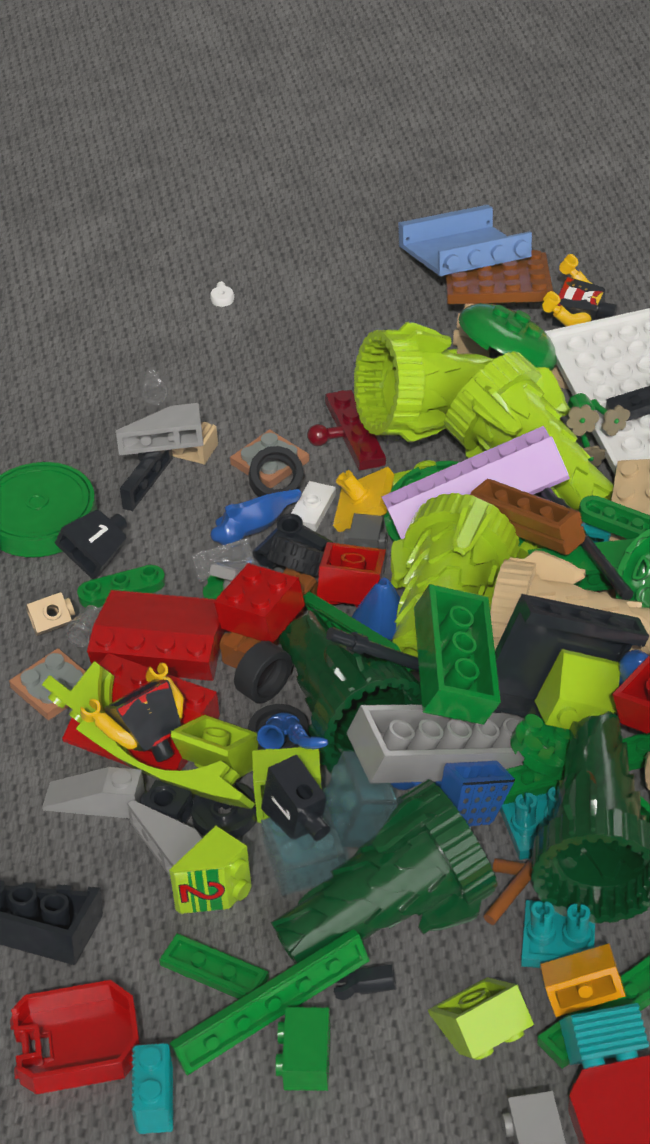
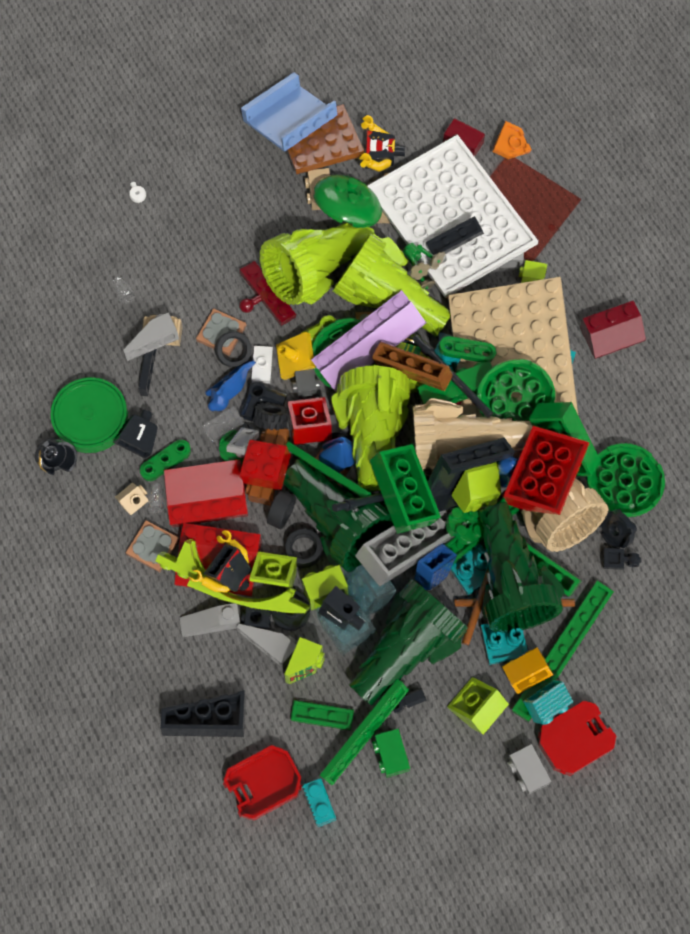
camera: 20 degrees left, 25 degrees up
(282, 724) = (308, 549): blue piece -> none

